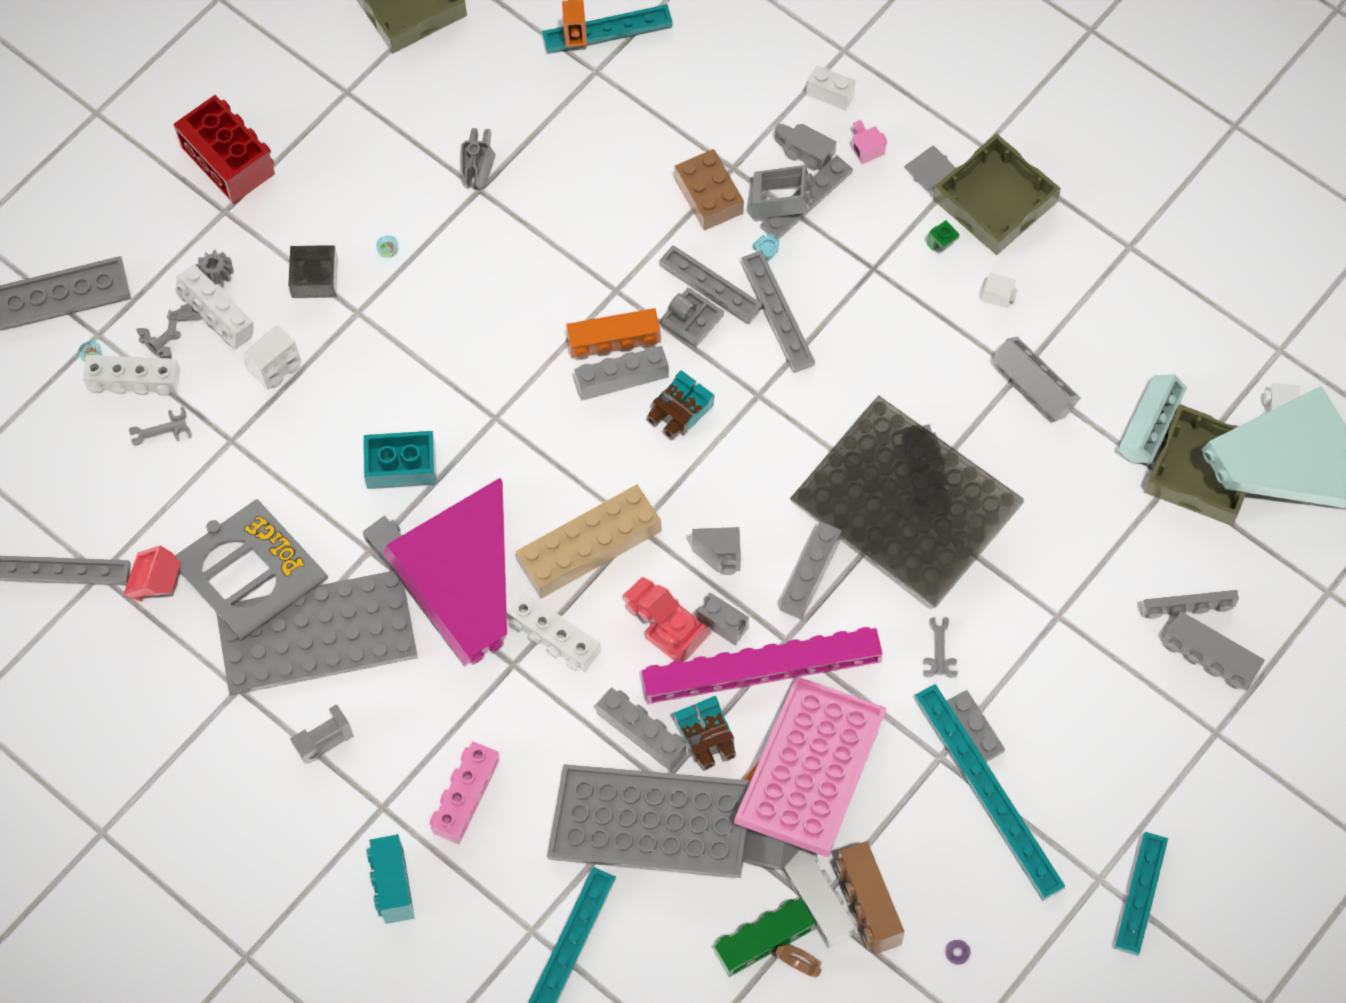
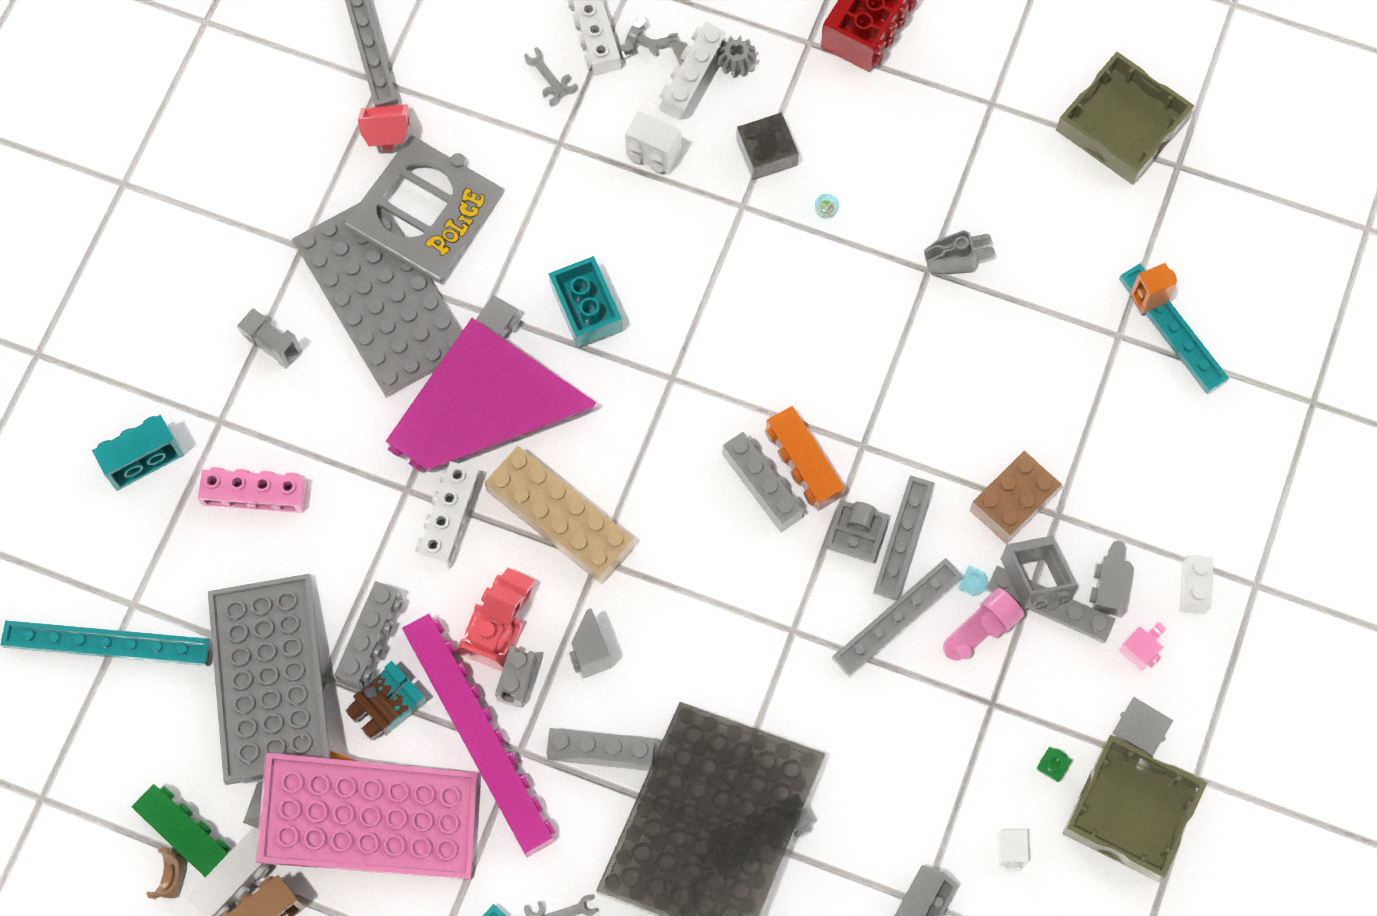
camera: 70 degrees right, 5 degrees up
(680, 405) = (747, 553): hips -> none
(804, 236) = (996, 615): none -> bright pink piece

